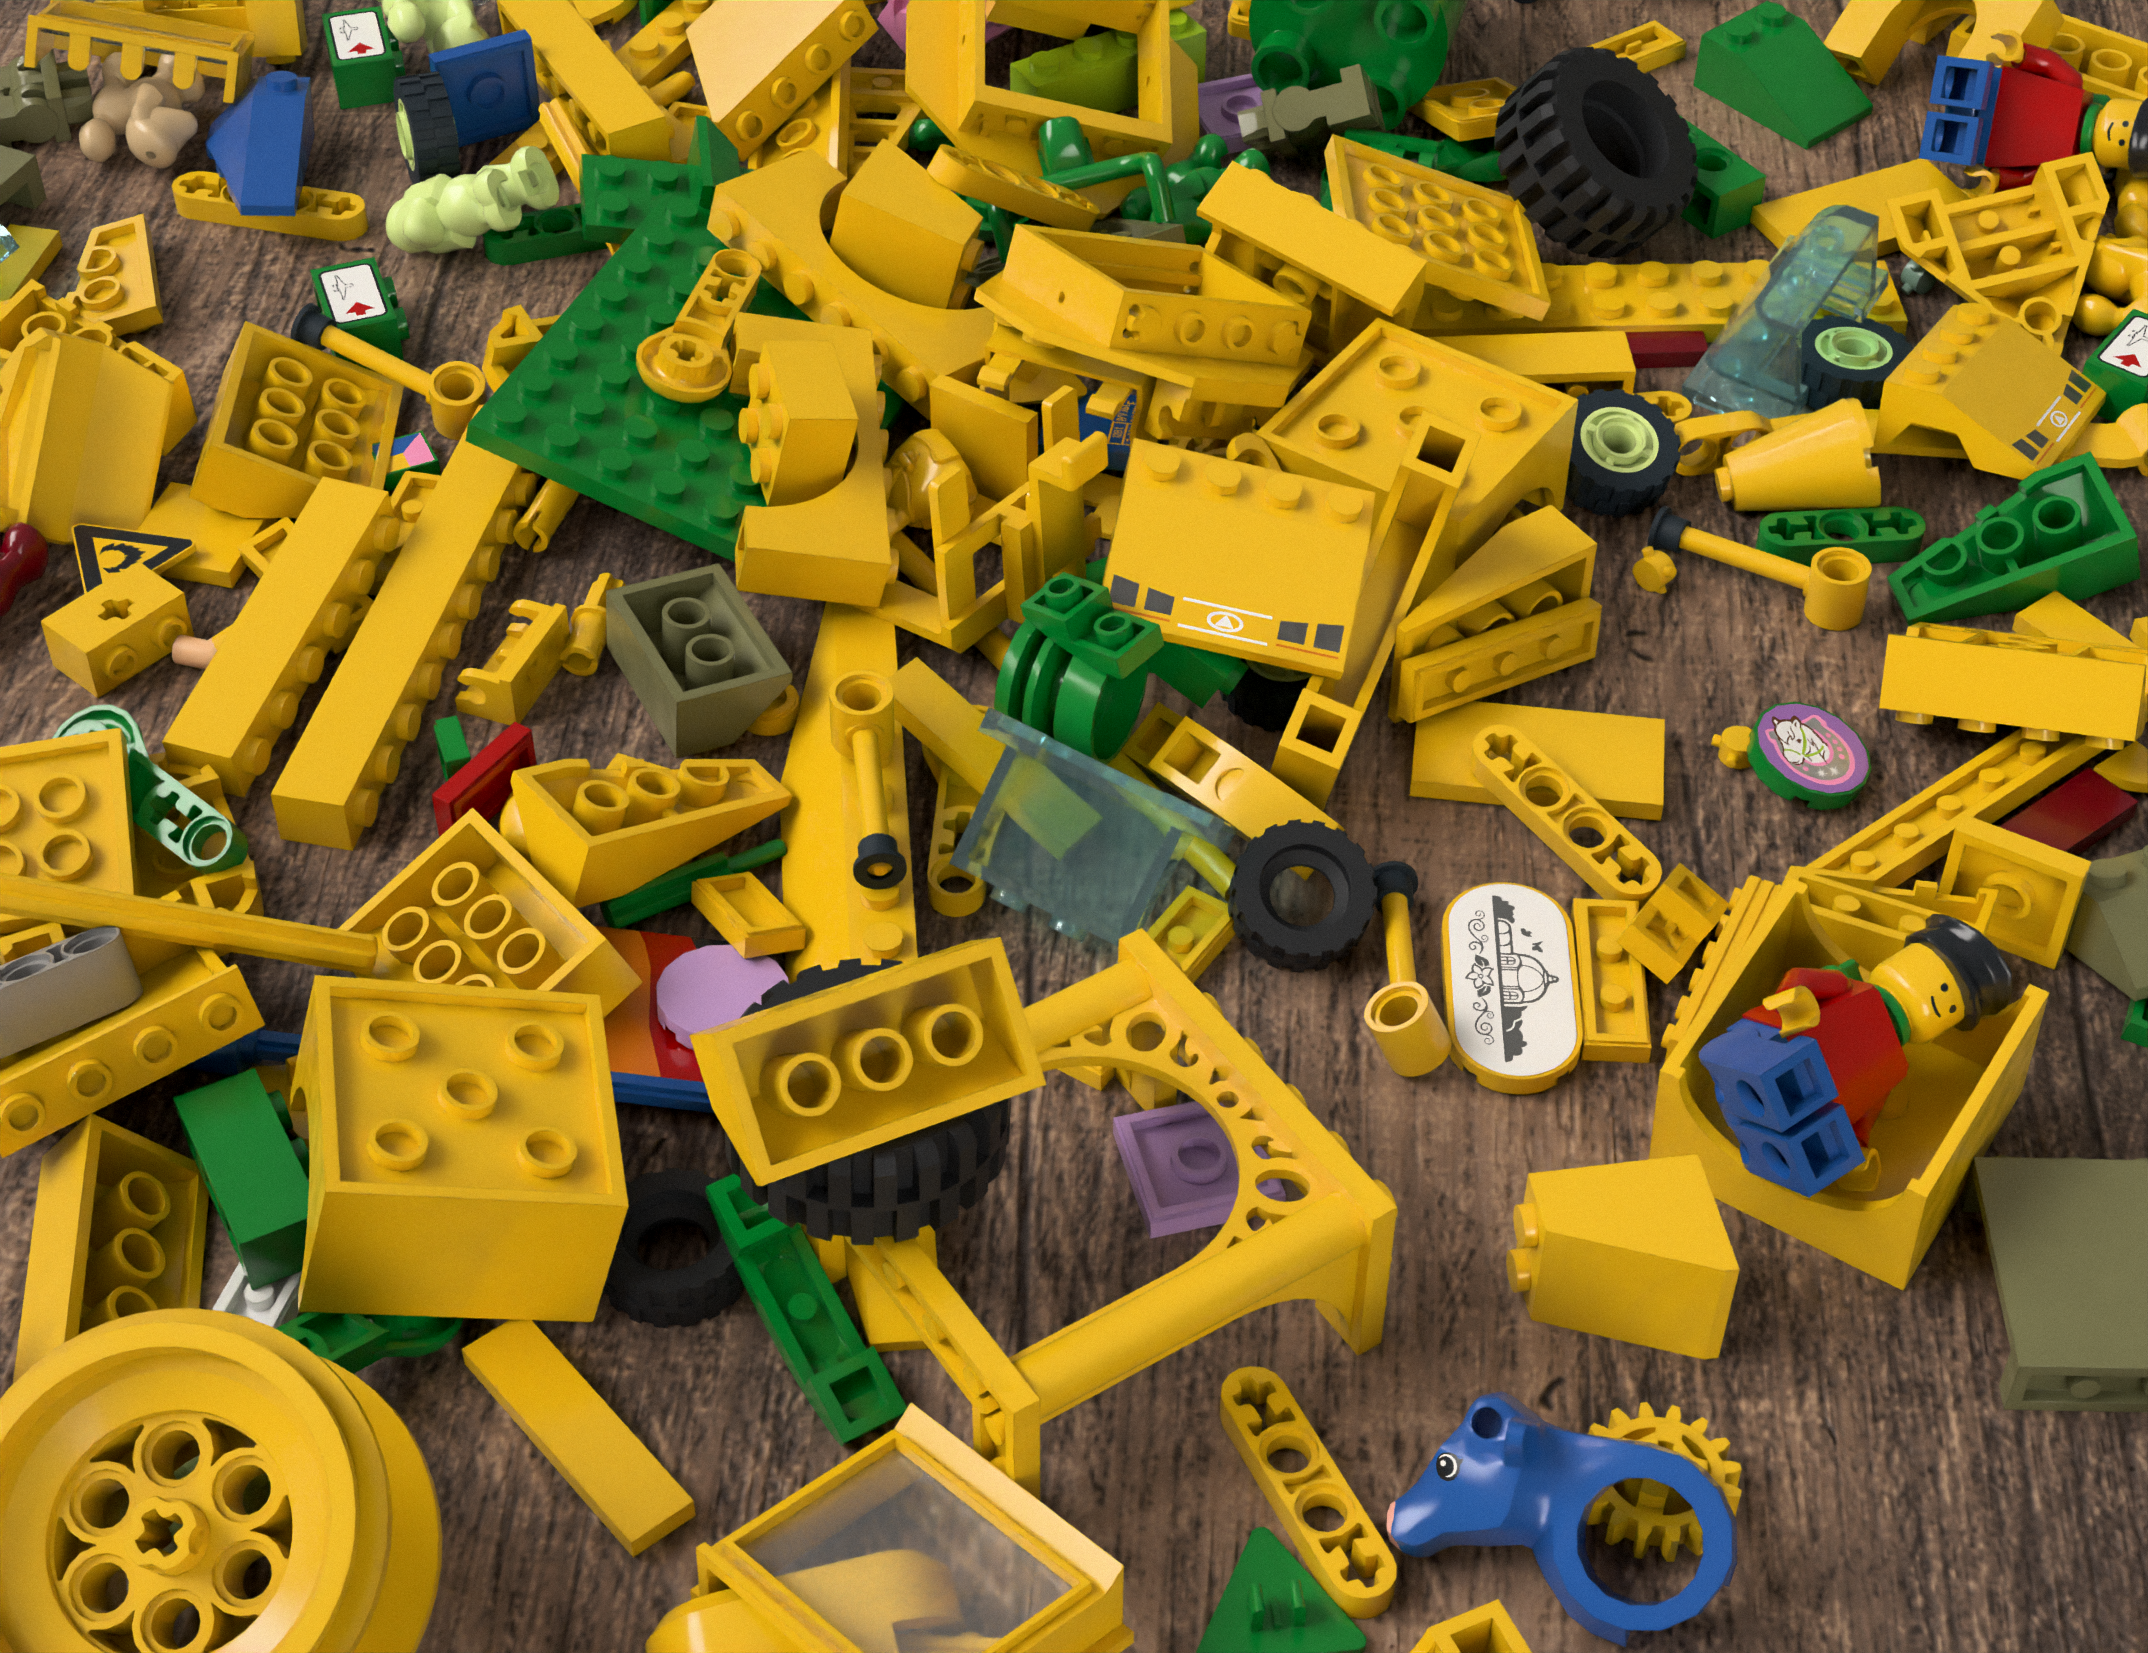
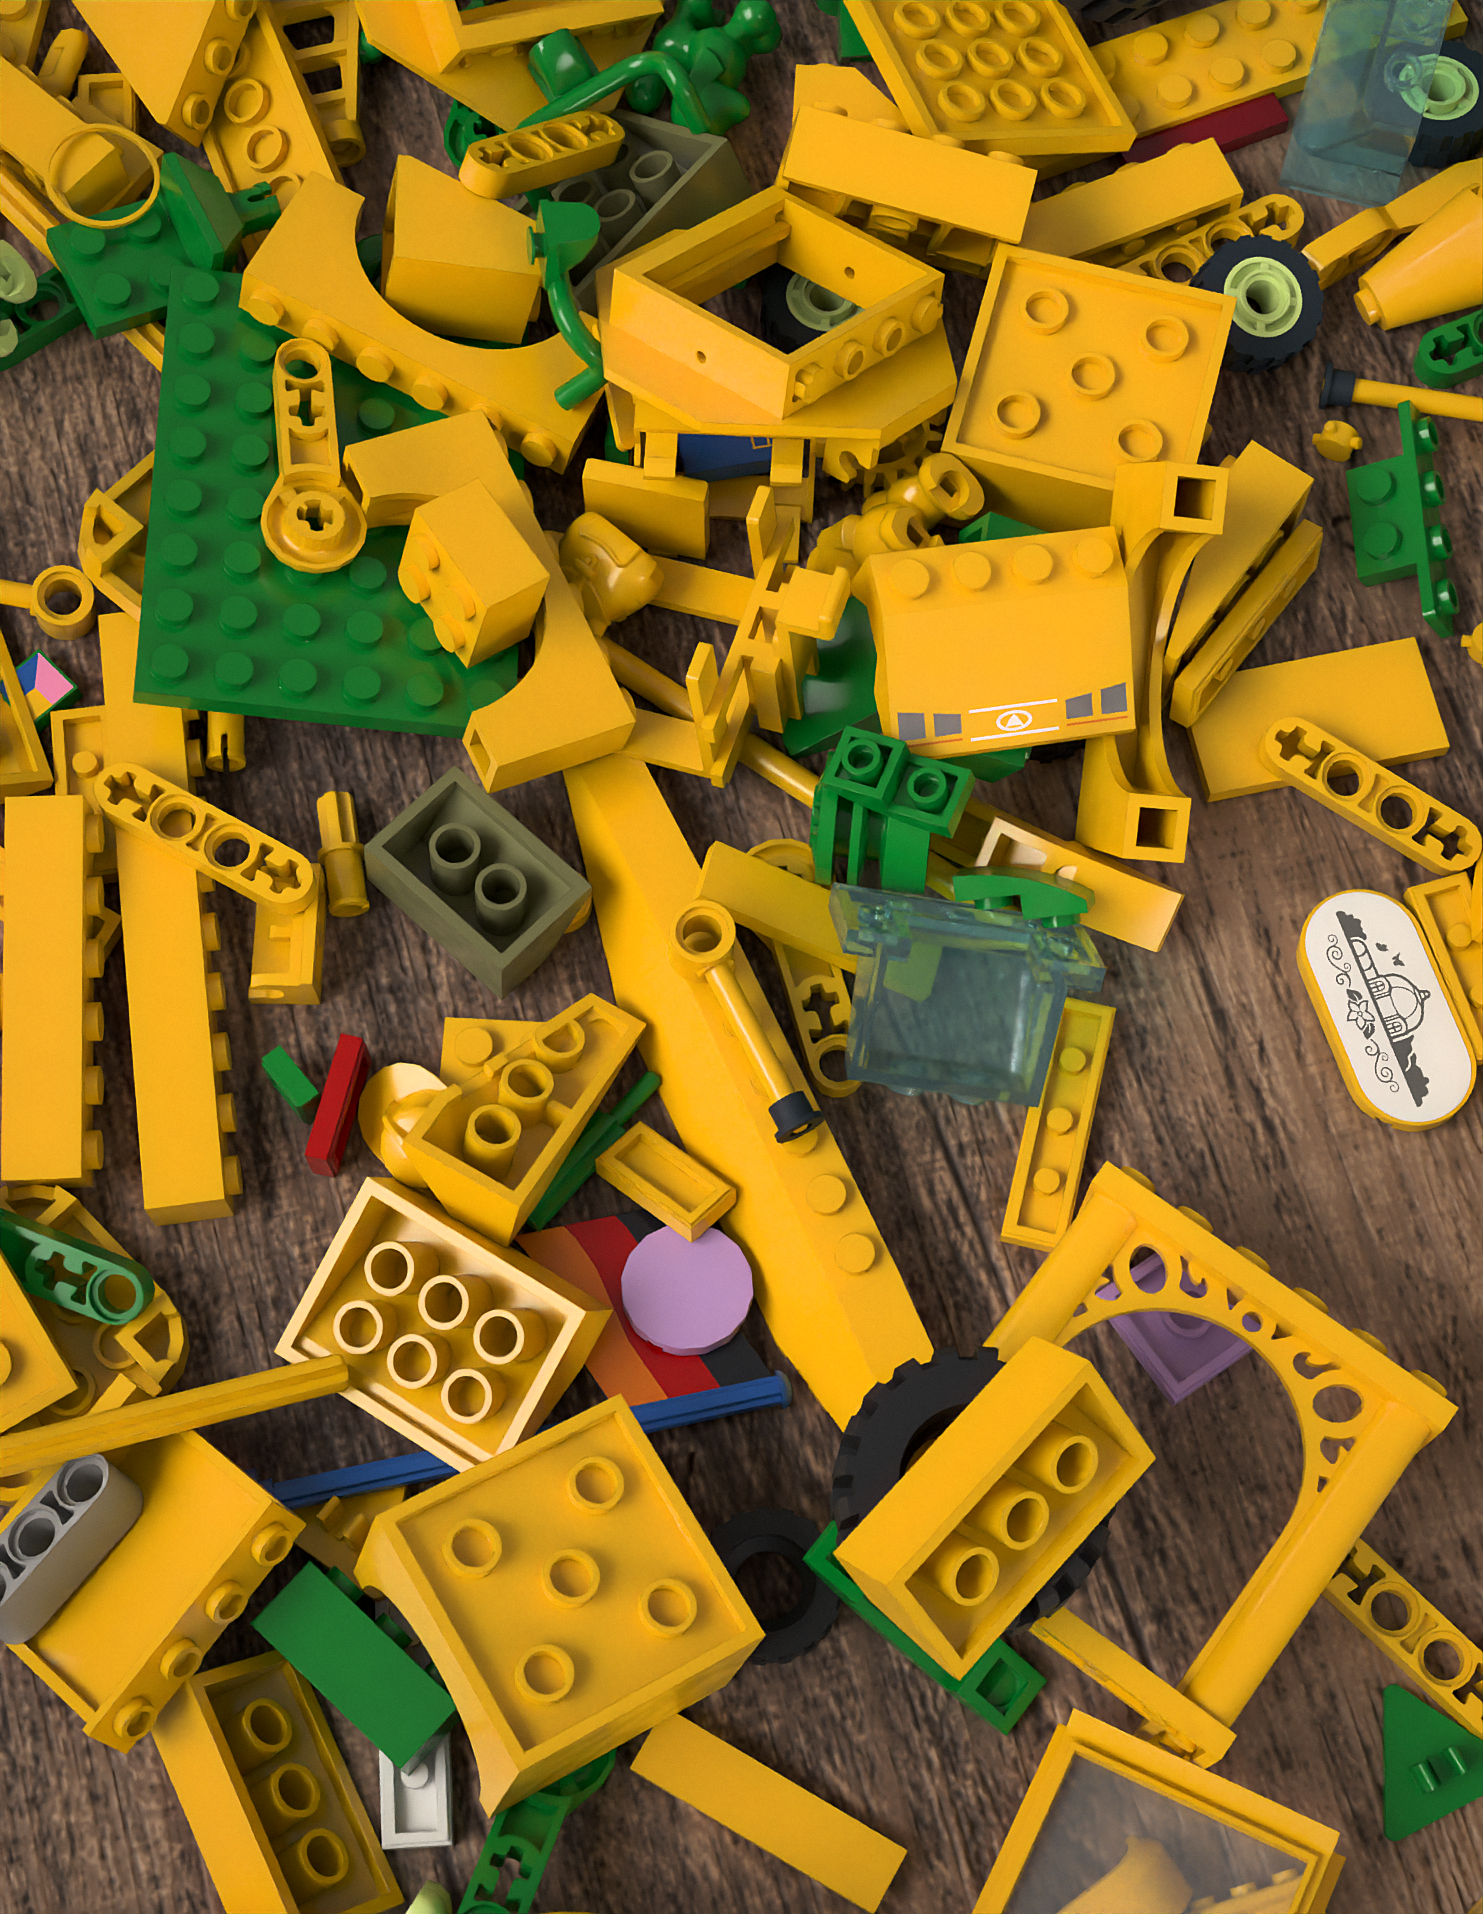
camera: 20 degrees left, 25 degrees up
(488, 551) = (208, 833): none -> yellow beam
(634, 161) = (103, 128): none -> yellow piece
(984, 204) = (561, 241): none -> green piece
(1191, 772) = (1041, 893): none -> green slope
(1312, 847) = (1223, 997): black tyre -> none
(1403, 1012) = (1248, 944): yellow piece -> none
(1692, 636) = (1399, 520): none -> green bracket

